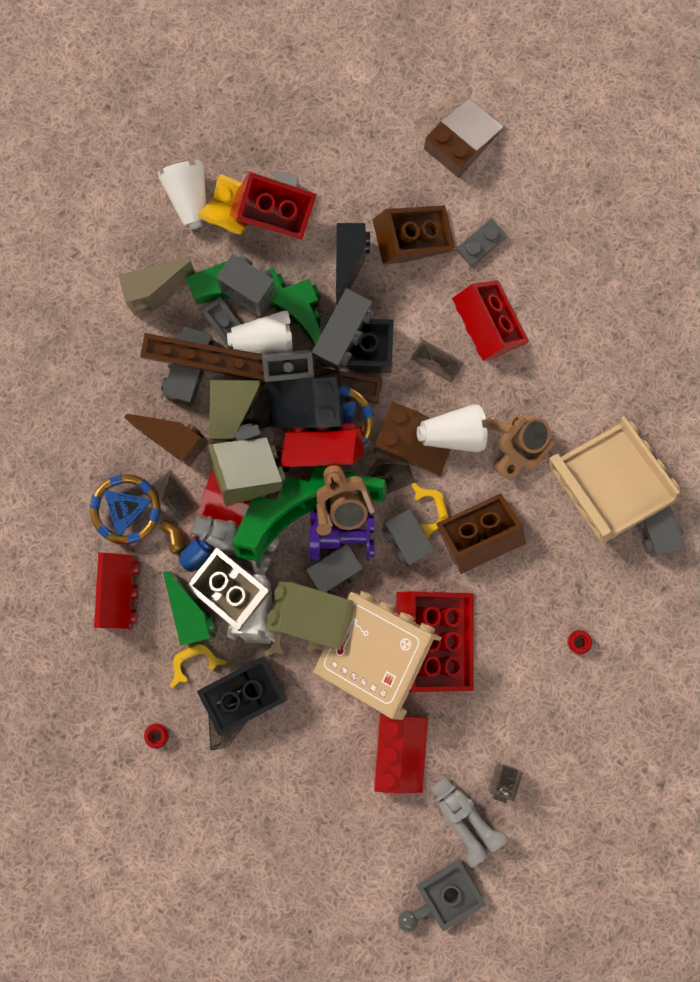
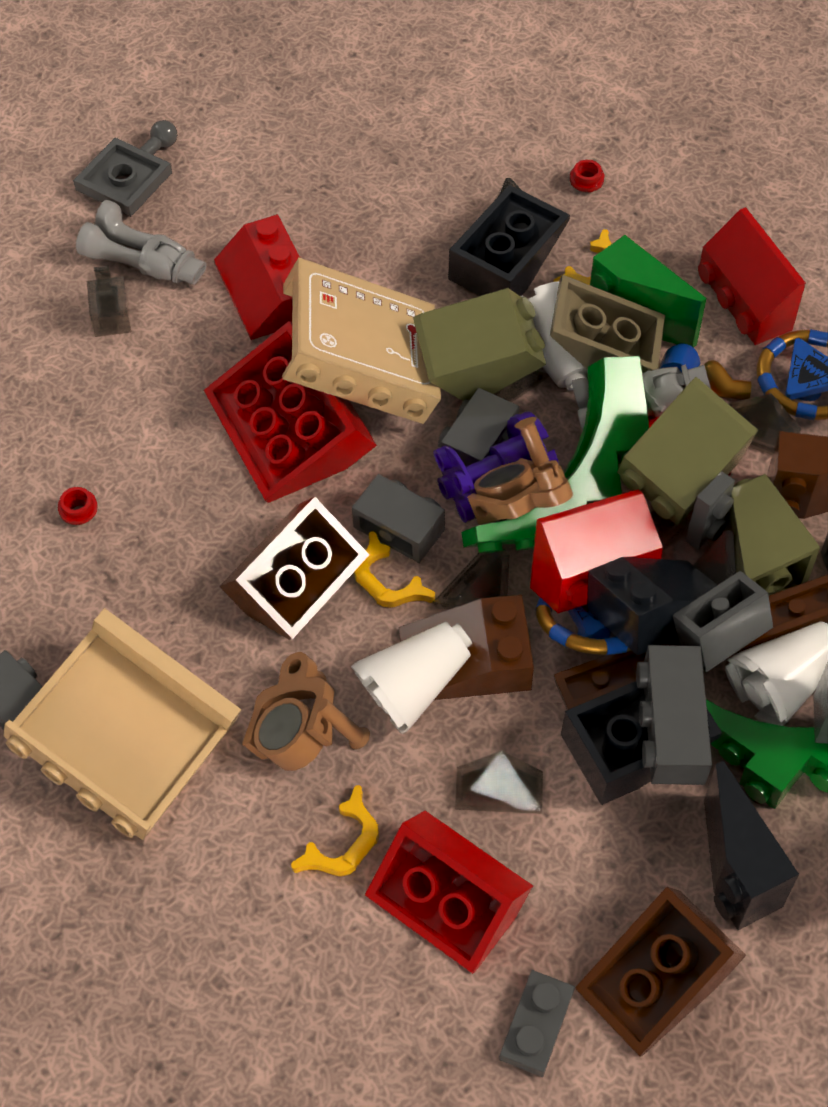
camera: 155 degrees right, 25 degrees down
(521, 364) = (355, 854): none -> yellow helmet

